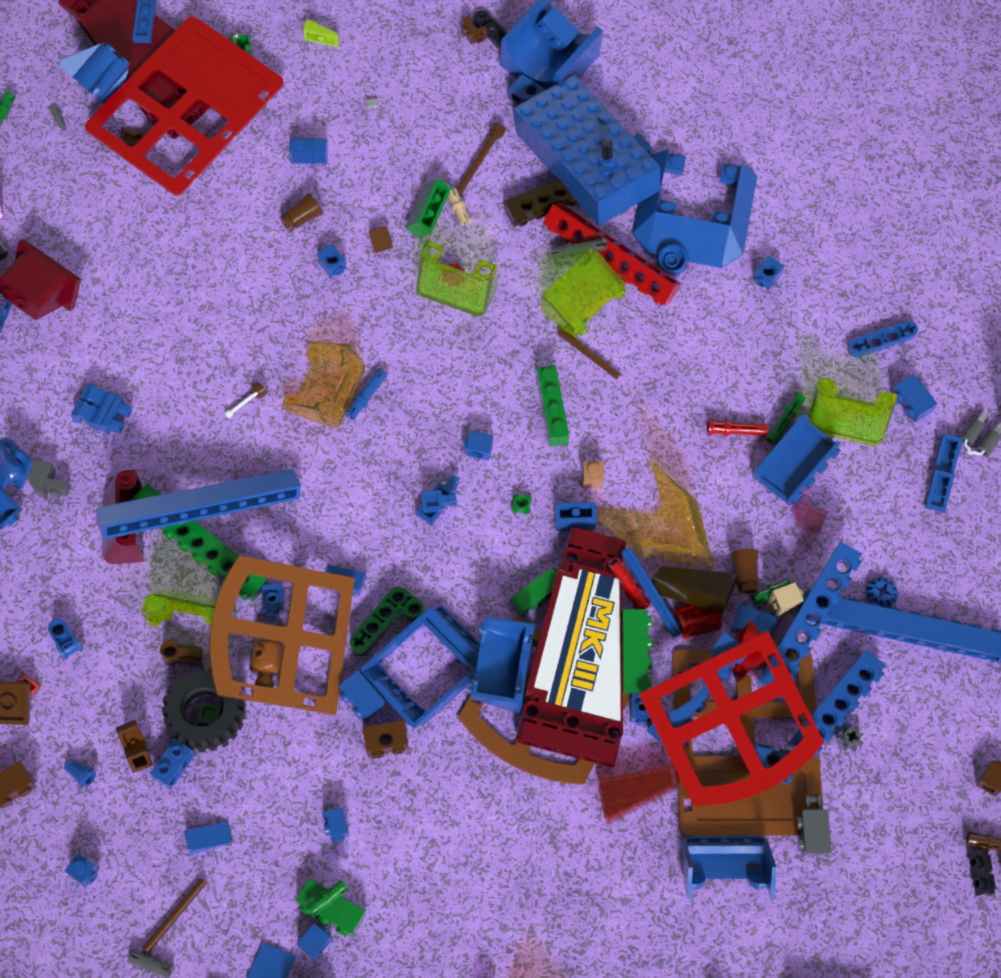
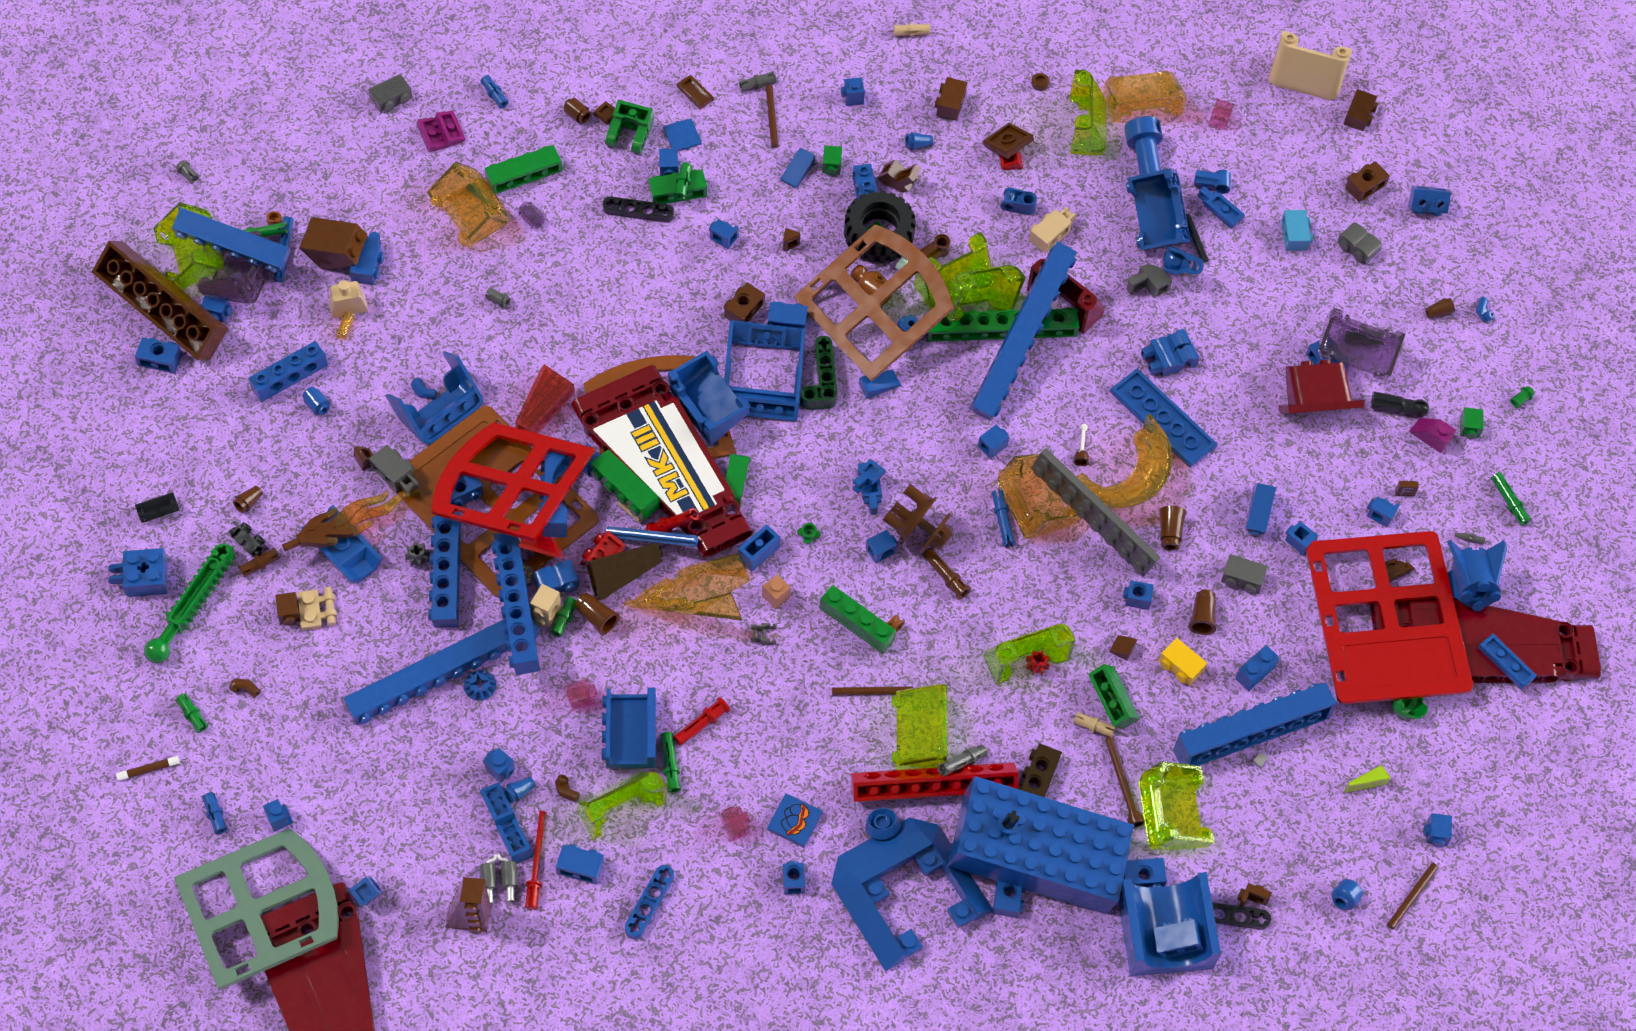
camera: 135 degrees right, 5 degrees down
(59, 178) = (1406, 488): none -> reddish brown tile
(66, 590) = (1051, 229): none -> tan brick
(95, 177) = (1382, 511): none -> blue brick
(162, 372) = (1144, 397): none -> blue tile
(173, 206) = (1300, 537): none -> blue brick
(173, 815) = (832, 160): none -> green brick
(176, 246) = (1260, 508): none -> blue slope
(179, 575) = (996, 285): none -> clear neon green windscreen
(242, 215) = (1244, 574): none -> dark grey brick
(245, 327) = (1149, 475): none -> clear yellow windscreen
(254, 285) = (1172, 524): none -> reddish brown plant
(287, 768) = (791, 239): none -> reddish brown slope
(305, 327) = (1094, 512): none -> dark grey plate
(311, 452) = (993, 441): none -> blue brick
(353, 195) = (1182, 662): none -> yellow brick
(357, 113) = (1255, 725): none -> blue brick
(382, 920) = (638, 206): none -> black beam
(437, 426) = (911, 519): none -> reddish brown piece
(451, 380) = (952, 579): none -> reddish brown pin
(469, 115) = (1172, 807): none -> clear neon green windscreen
(527, 382) = (896, 623): none -> dark orange bush
(586, 932) = (497, 297): none -> dark grey pin
(625, 461) = (765, 641): none -> dark grey piece
(728, 896) = (420, 389): none -> blue arm
(730, 312) = (794, 820): none -> blue tile
(776, 339) = (735, 822): none -> clear pink brick
(825, 869) = (362, 456): none -> reddish brown slope
(830, 960) = (316, 401): none -> blue brick
(880, 462) = (564, 790): none -> reddish brown arm
(898, 809) = (322, 534): none -> piece
(908, 799) = (352, 556): none -> blue piece
(915, 486) = (517, 790): none -> blue cone
(918, 513) = (499, 764): none -> blue brick
(958, 411) = (534, 886): none -> red piece
(959, 912) = (246, 500): none -> reddish brown cone
(973, 765) = (310, 612): none -> tan plate

